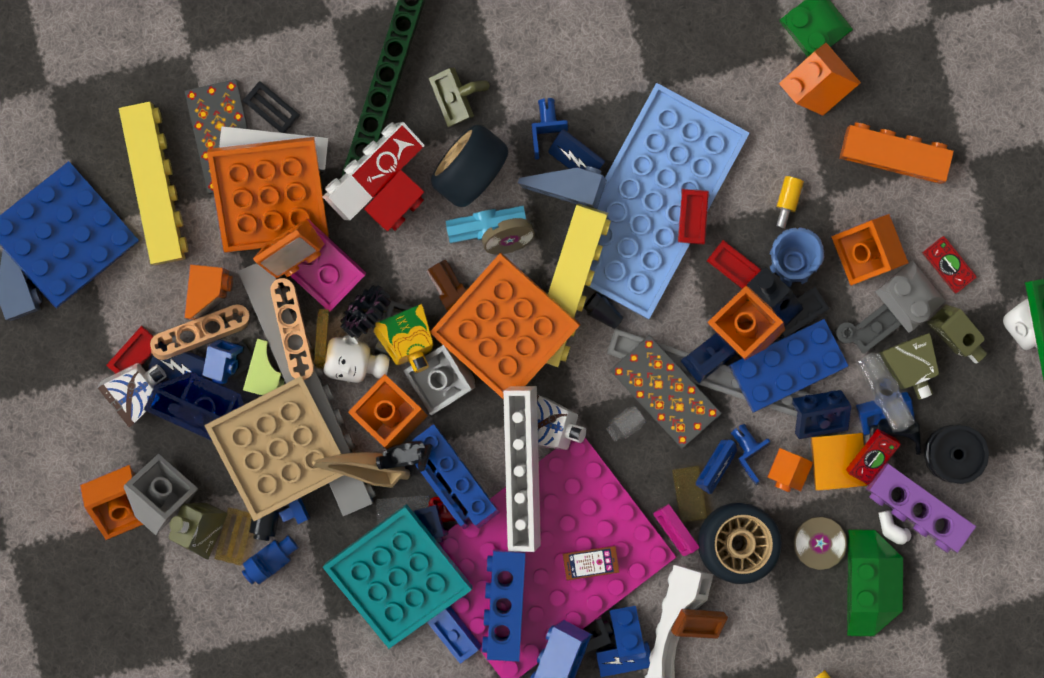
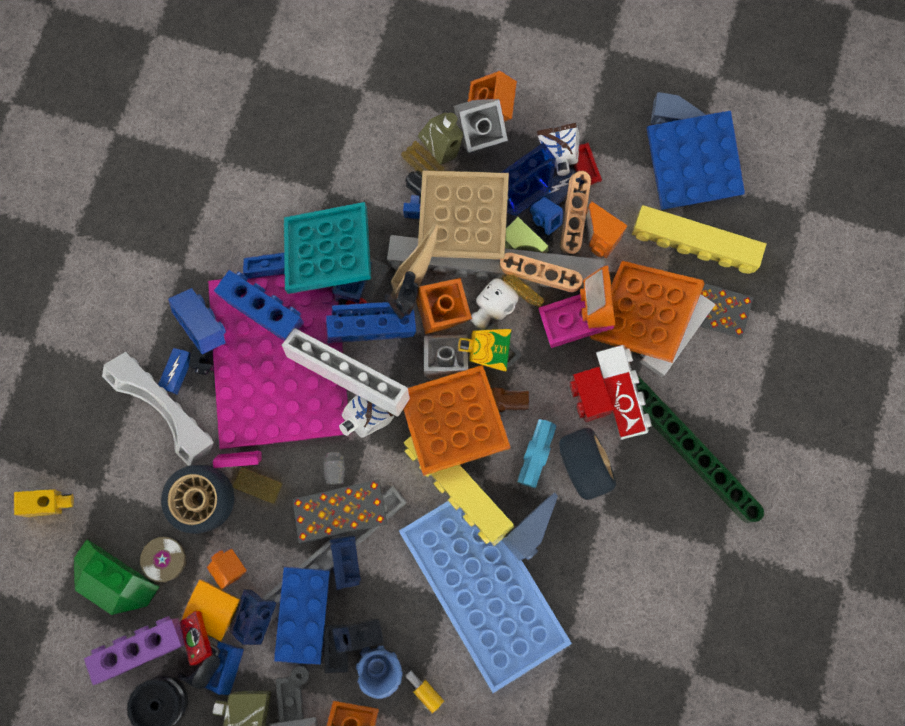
camera: 125 degrees right, 10 degrees down
(269, 560) = (390, 167): blue piece -> none
(288, 122) = (690, 357): black tile -> none
(358, 321) = (529, 339): black gear -> none
(452, 95) = (646, 484): olive plate -> none
(508, 237) = (519, 462): dark tan tile -> none
(548, 123) = (586, 542): blue bracket -> none
(574, 153) = (553, 548): dark blue slope -> none
(590, 562) = (252, 384): tile -> none
(602, 310) = (424, 501): black cone -> none
(627, 634) = (188, 381): blue plate -> none
(693, 216) = (454, 610): red tile -> none
(699, 623) = (161, 435): dark orange tile -> none
(716, 466) = (264, 516): blue slope -> none
(733, 264) = (400, 619): red tile -> none
(747, 324) = (349, 601): orange slope -> none
(750, 449) = (261, 549): blue bracket -> none
(892, 406) = (219, 677): clear piece -> none
(892, 531) = (136, 618): white arm -> none

